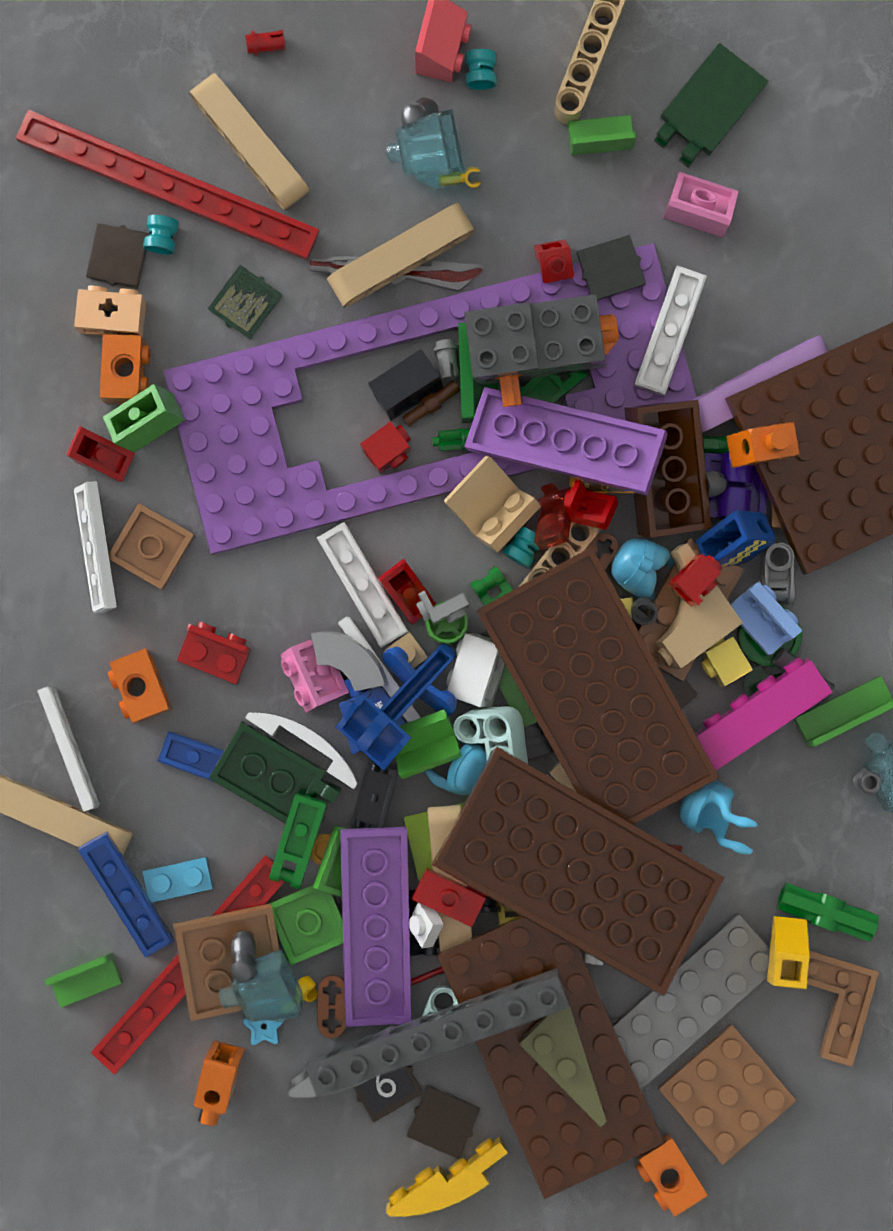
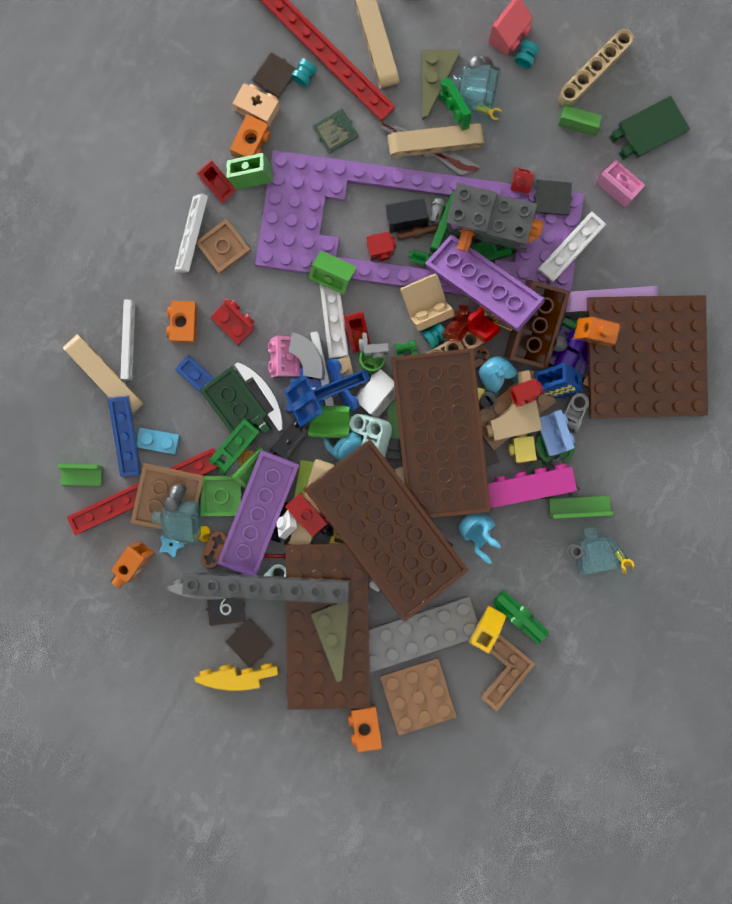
camera: 25 degrees right, 0 degrees up
(331, 517) = (331, 272): none -> bright green panel
(355, 151) = (435, 67): none -> olive wing
(407, 188) = (455, 103): none -> green plate

